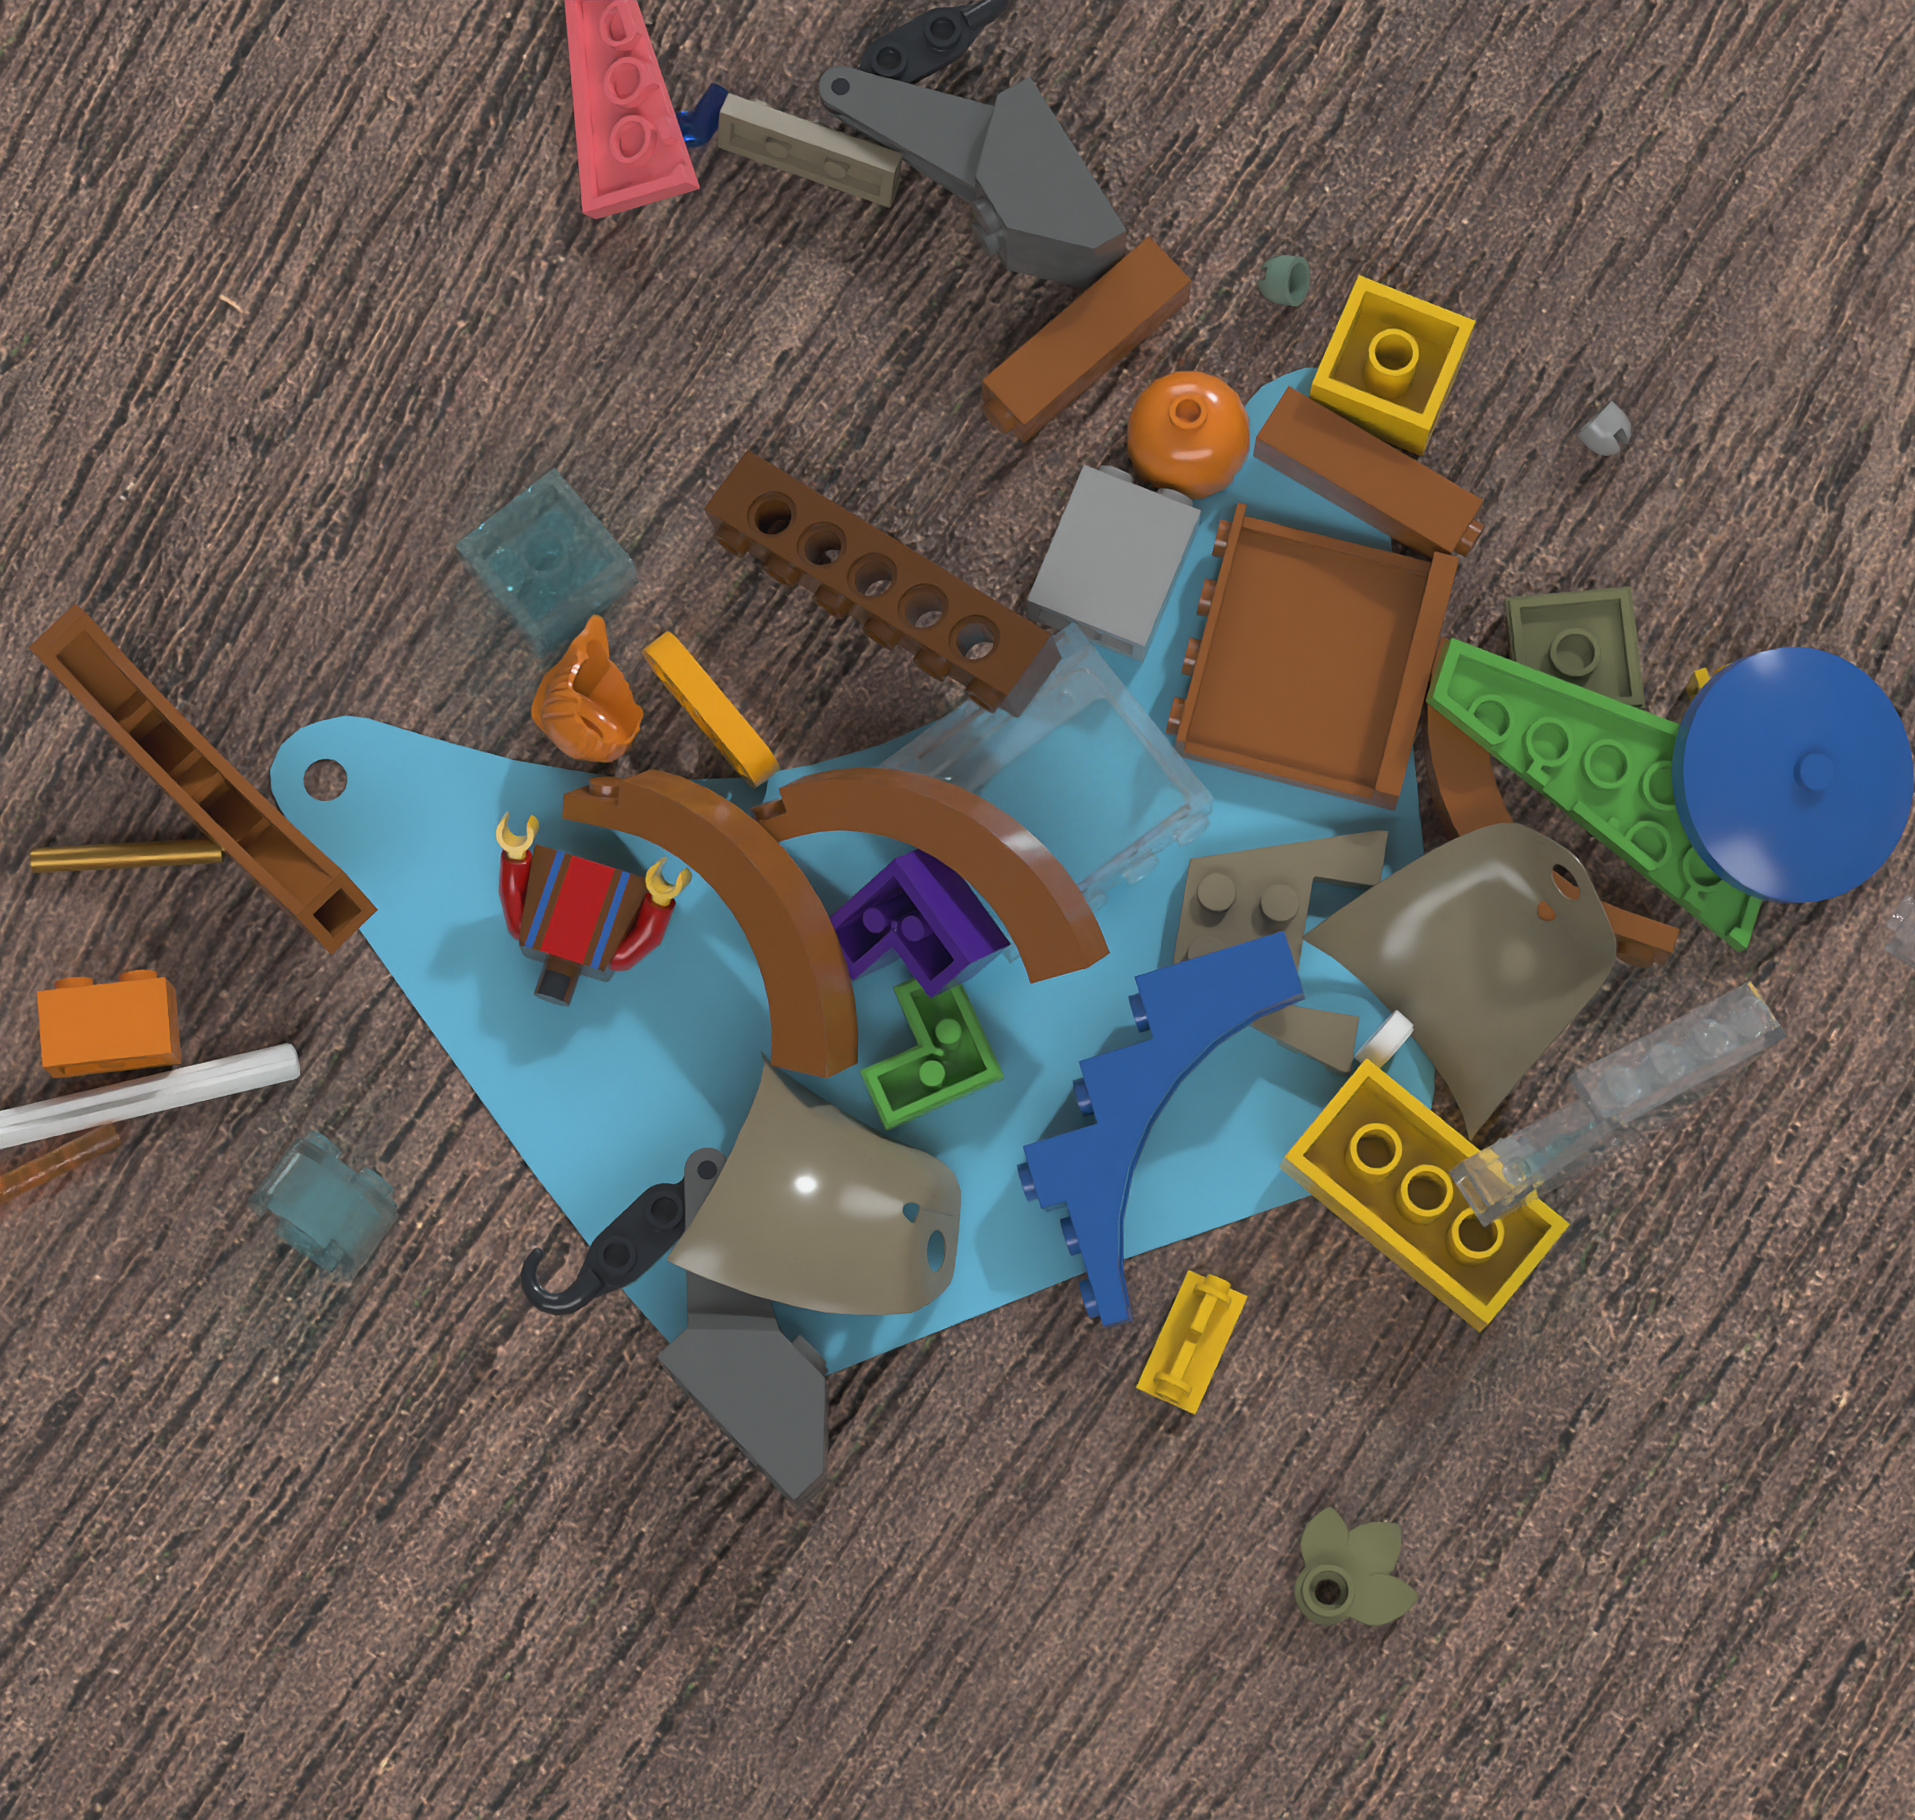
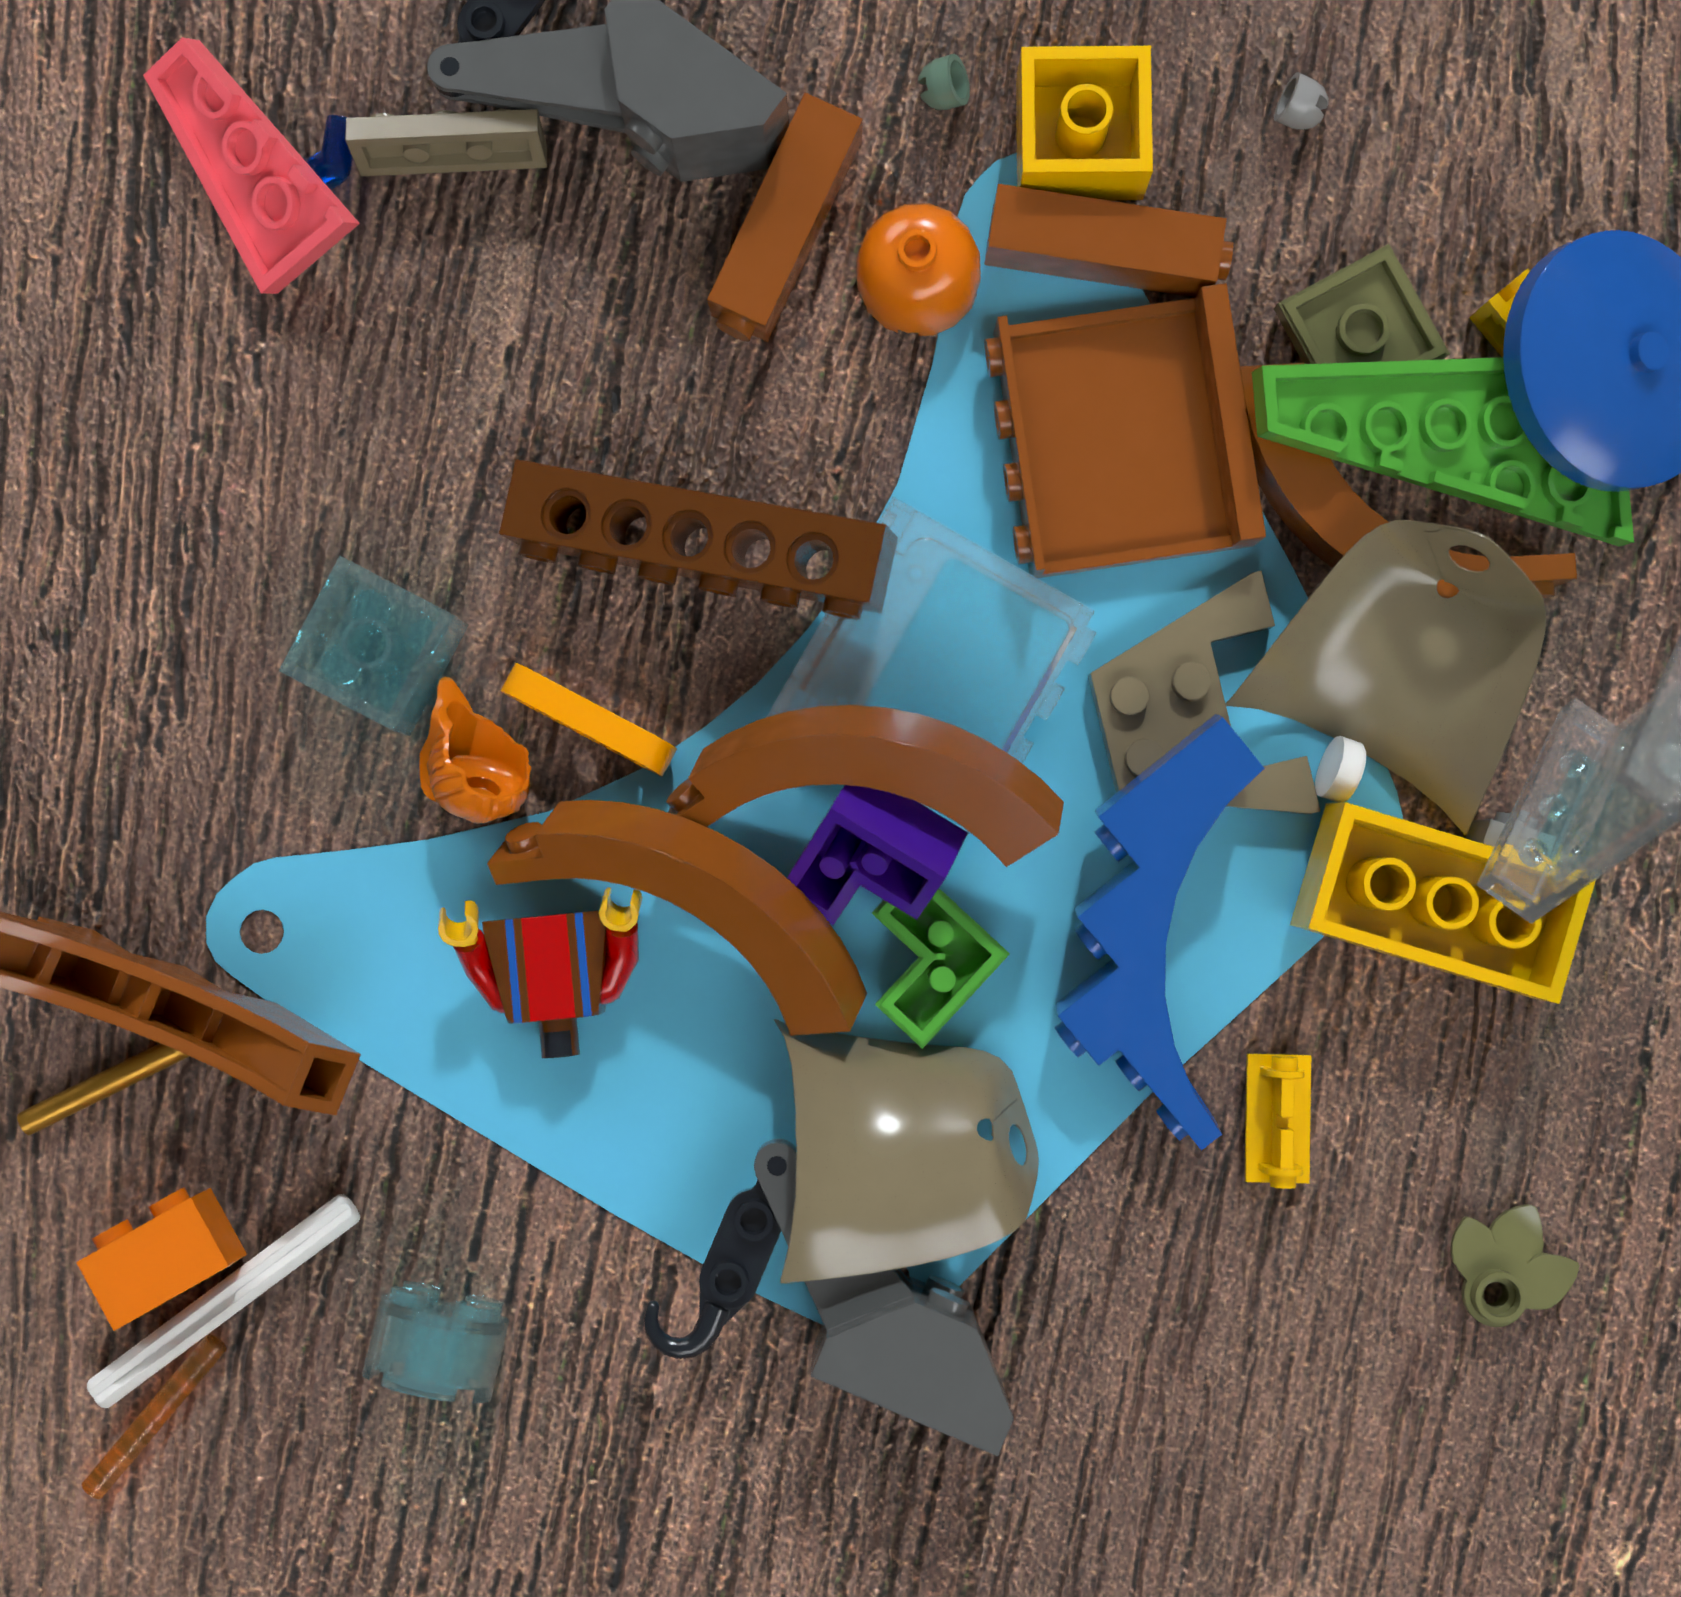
camera: 20 degrees left, 10 degrees up
(1114, 560) = (903, 419): light grey brick -> none

